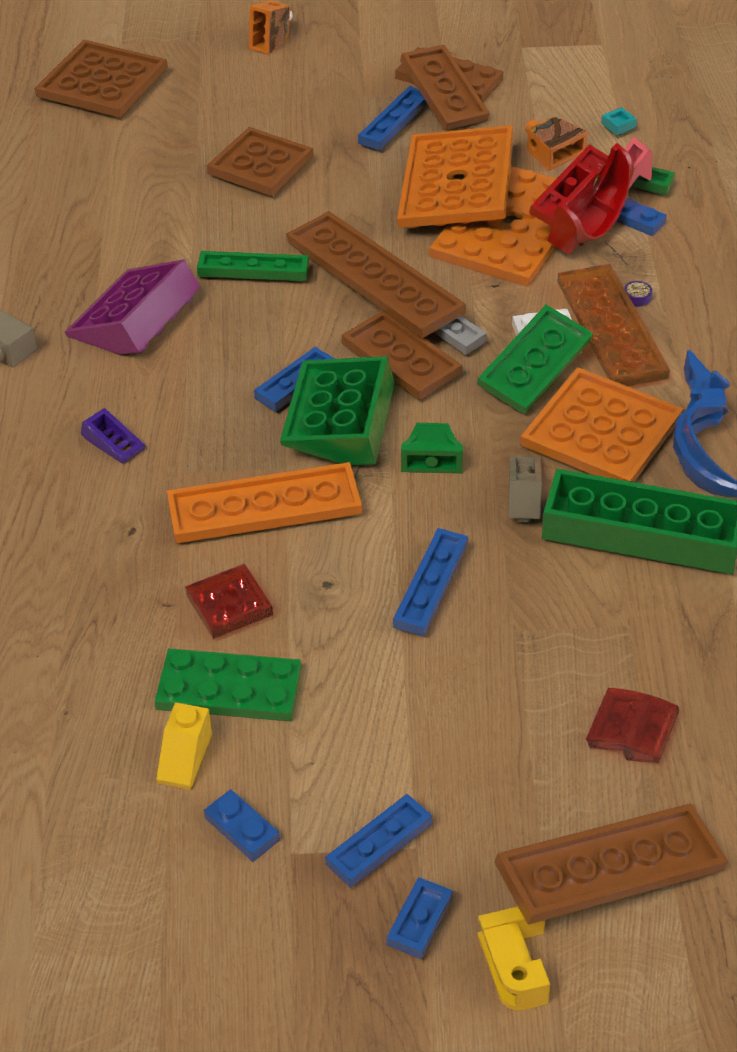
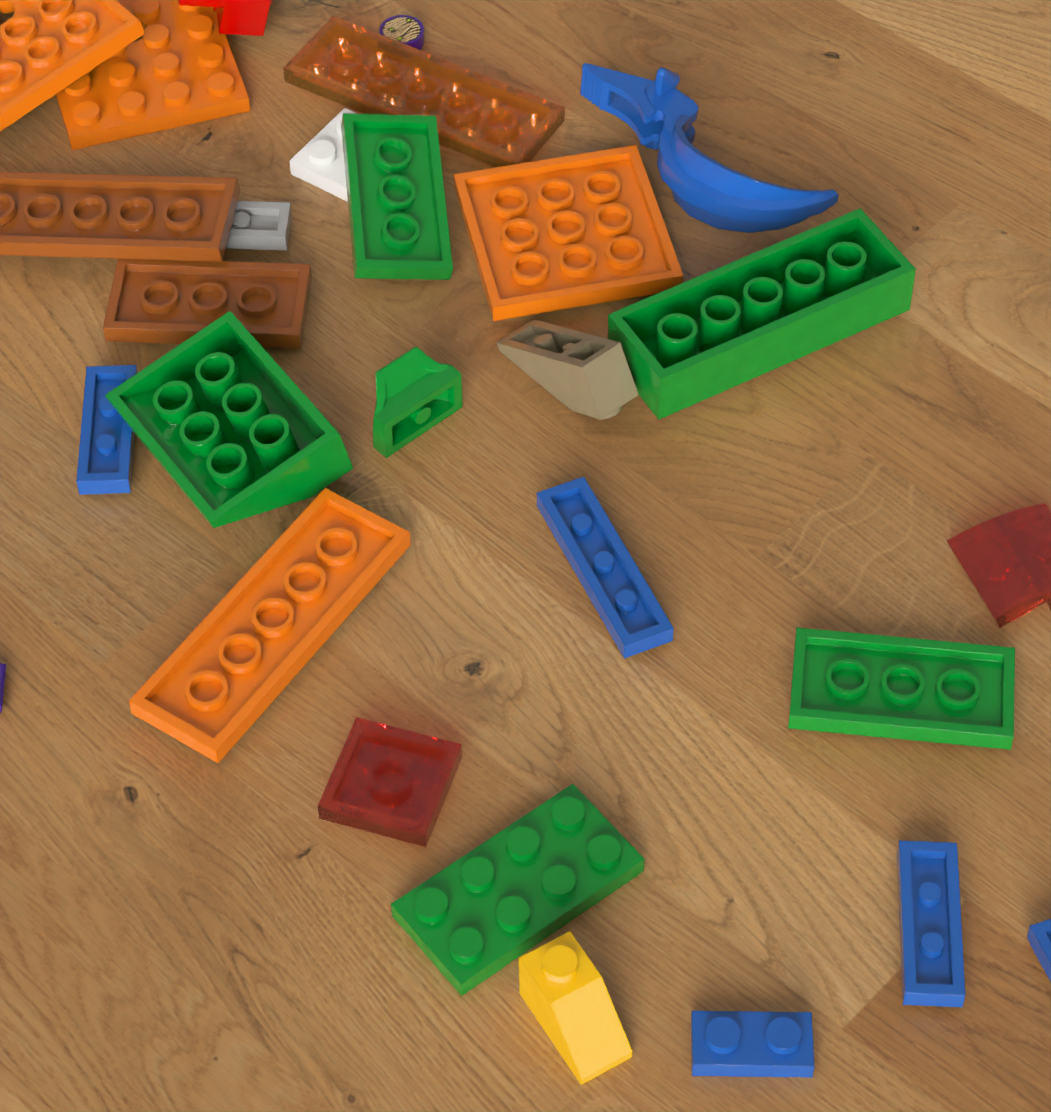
camera: 45 degrees left, 5 degrees up
(500, 734) = (903, 688): none -> green plate

